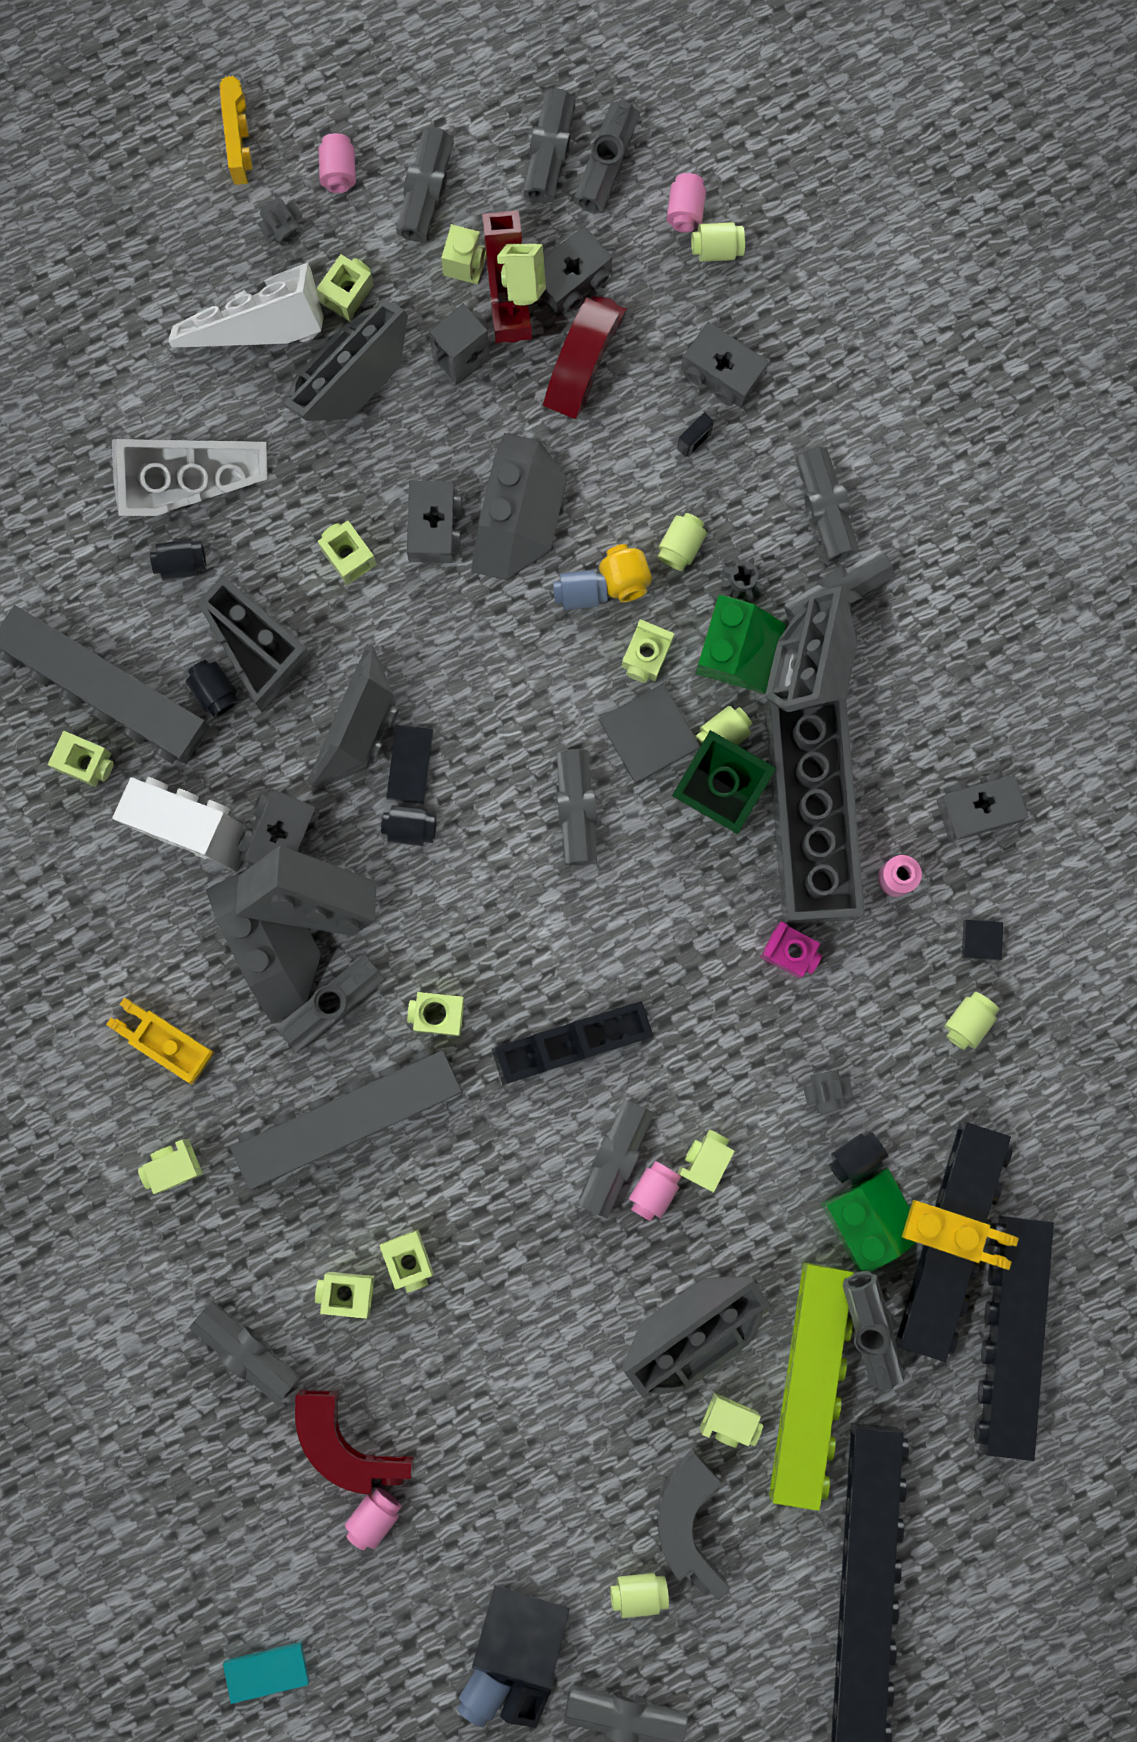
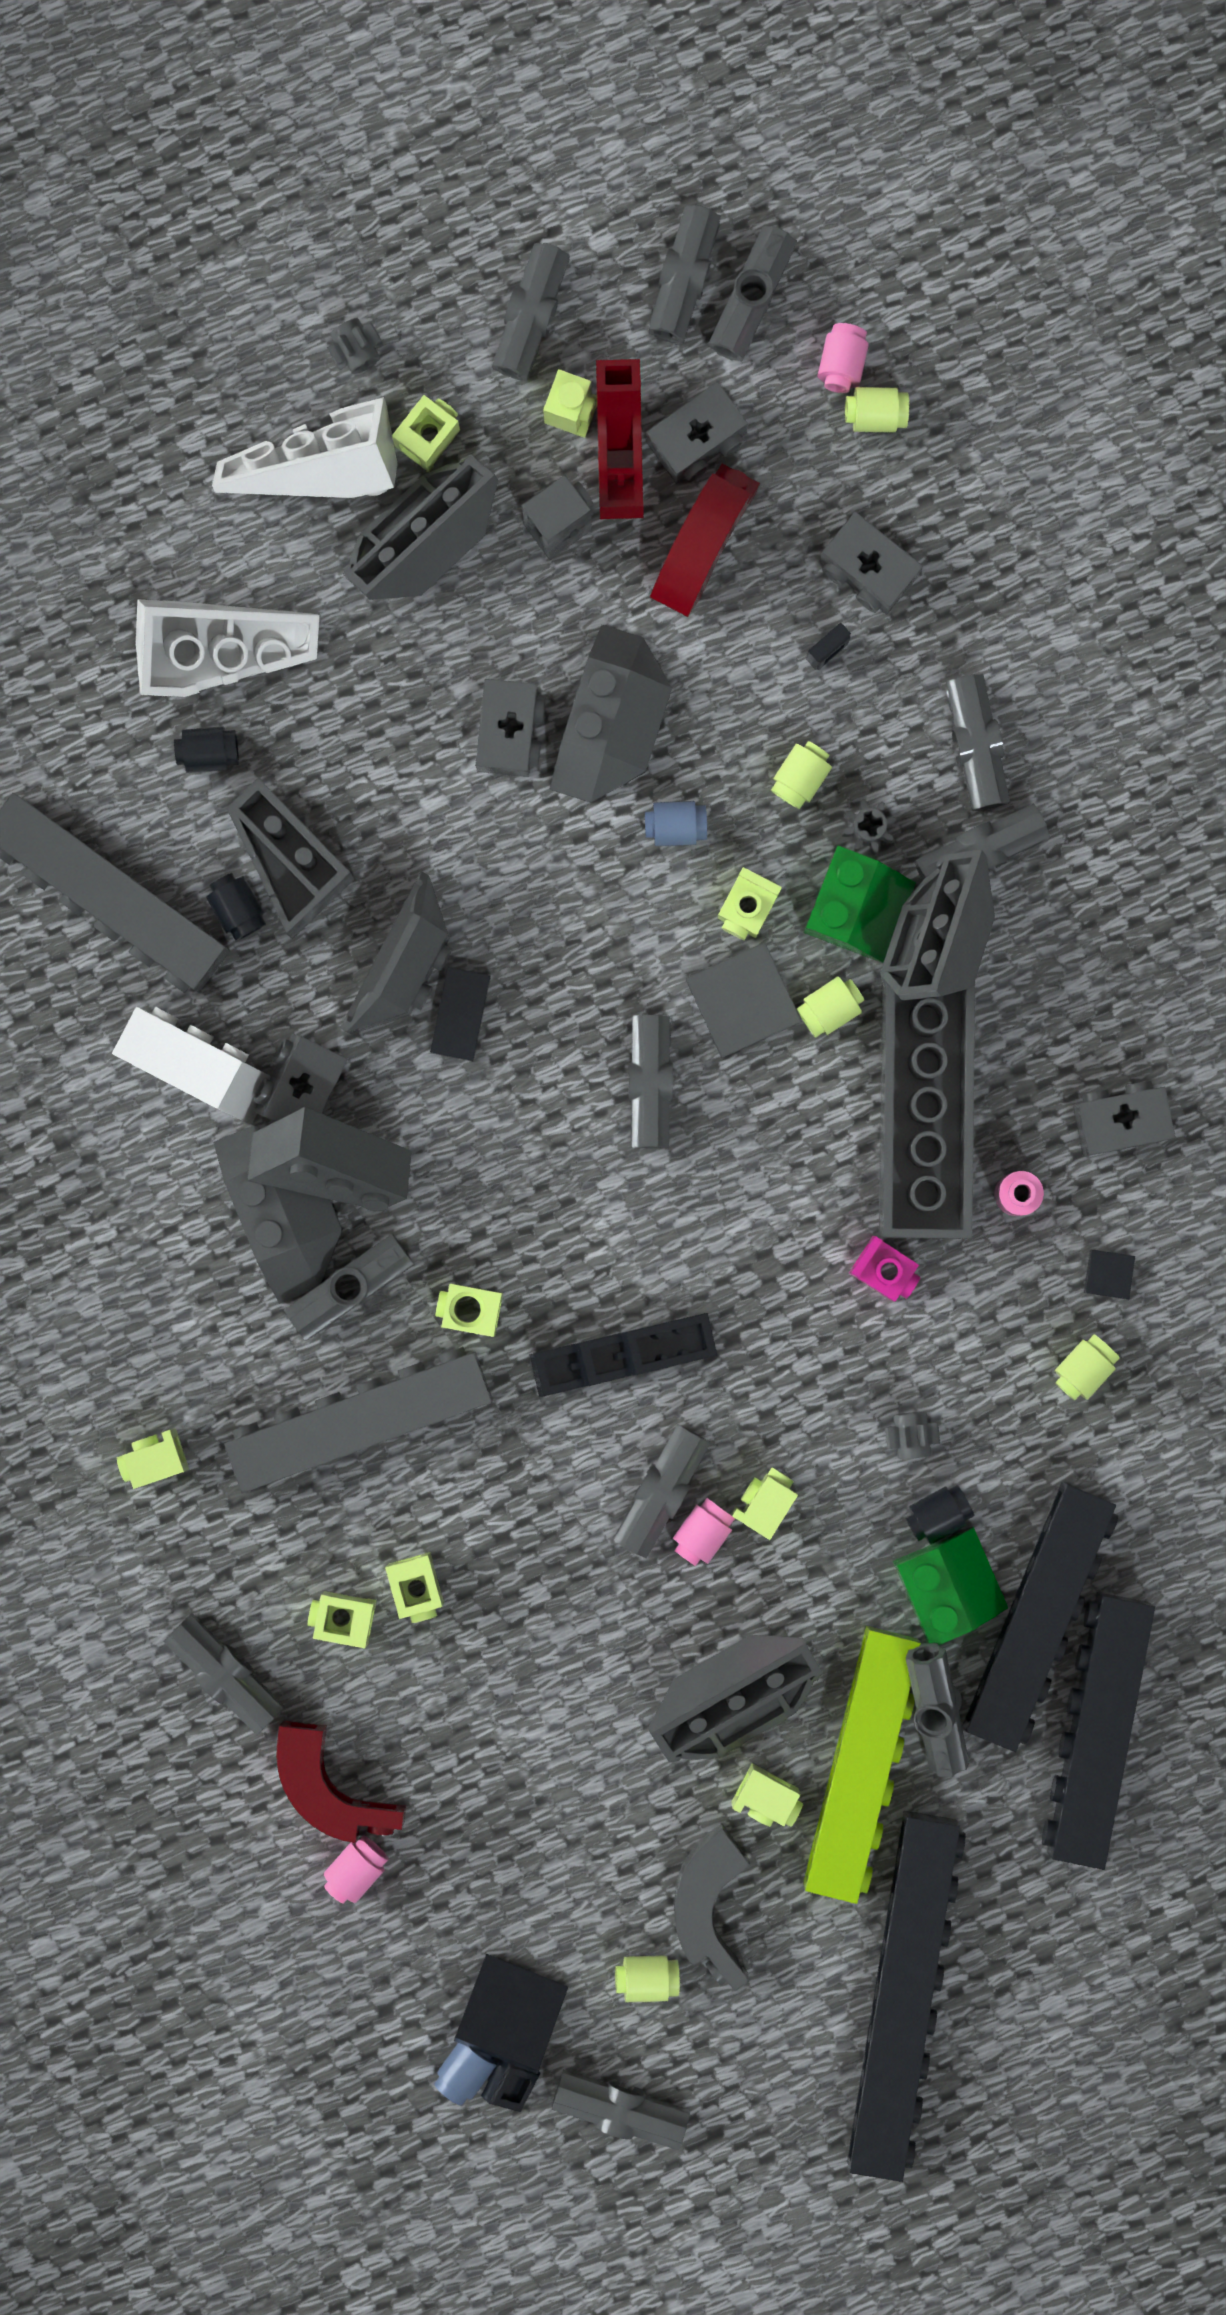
camera: 15 degrees right, 5 degrees up
(72, 750) = (66, 971): yellowish green brick -> none
(164, 1043) = (154, 1316): yellow hinge -> none
(235, 129) = (308, 224): yellow hinge -> none
(266, 1672) = (224, 2026): teal tile -> none
(337, 163) = (427, 277): bright pink brick -> none
(355, 564) = (396, 738): yellowish green brick -> none
(409, 825) = (454, 1088): black brick -> none
(523, 272) = (639, 438): yellowish green brick -> none
(625, 573) = (731, 808): yellow head -> none
(723, 782) = (822, 1069): dark green slope -> none
(954, 1234) = (1040, 1610): yellow hinge -> none

